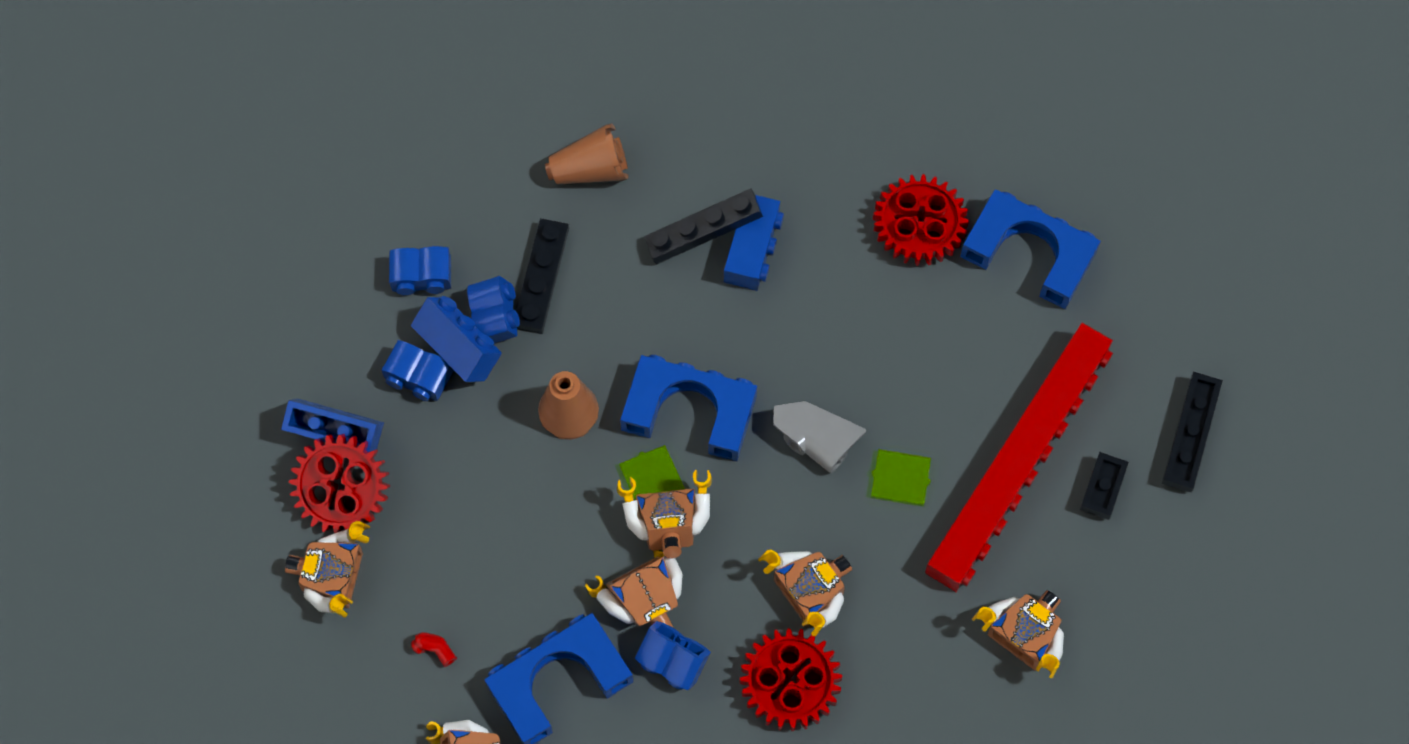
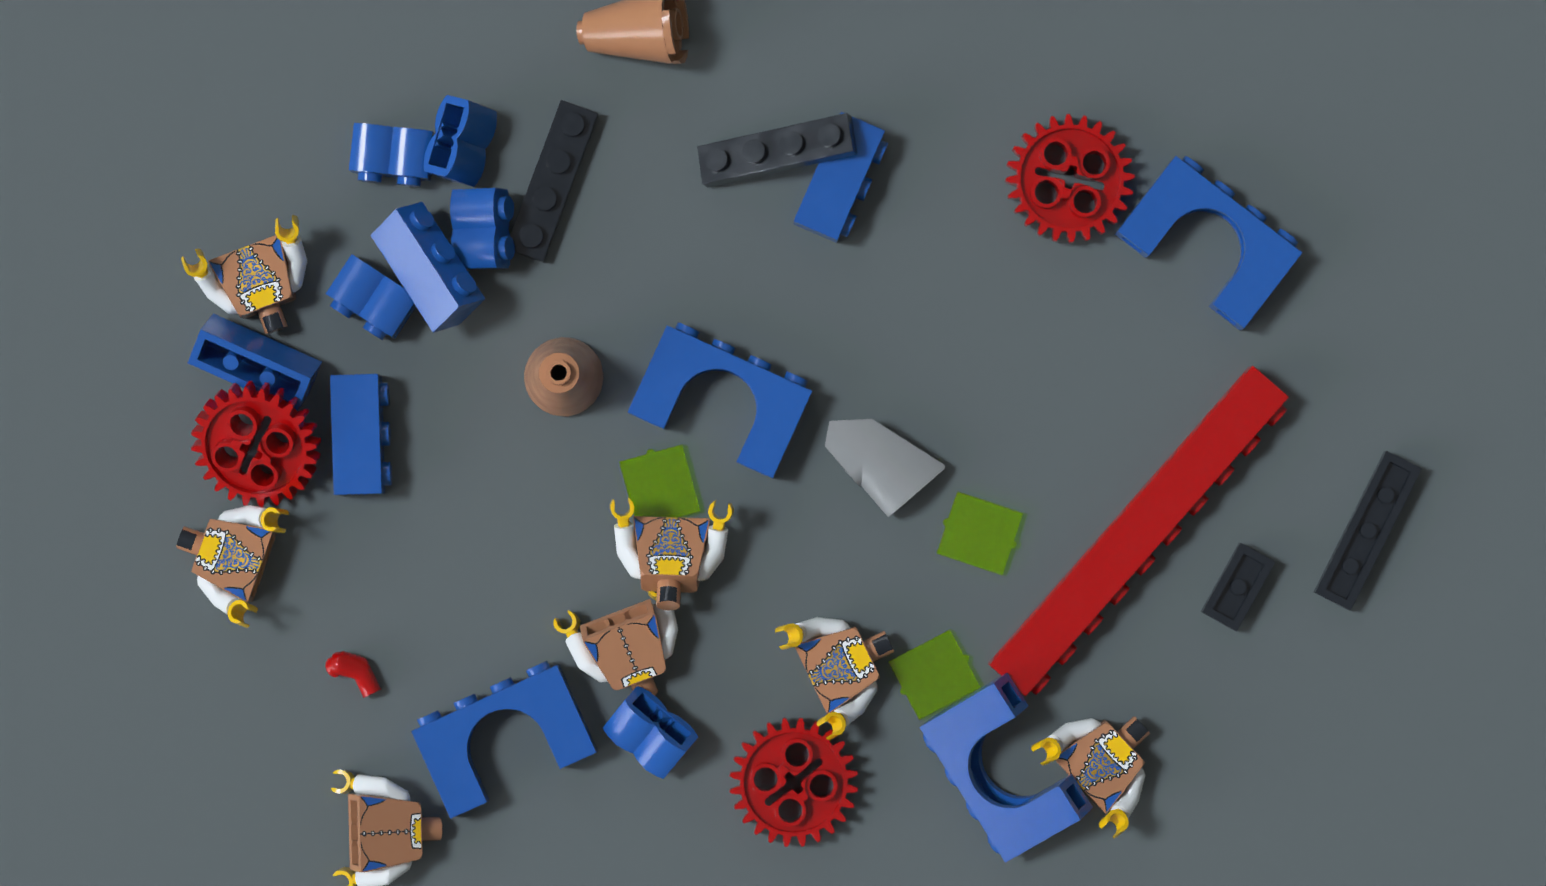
camera: 10 degrees right, 20 degrees up
(327, 368) = (255, 276): none -> torso
(418, 469) = (359, 434): none -> blue brick
(469, 251) = (460, 140): none -> blue brick
(885, 586) = (934, 674): none -> clear neon green piece
(913, 624) = (1008, 819): none -> arch

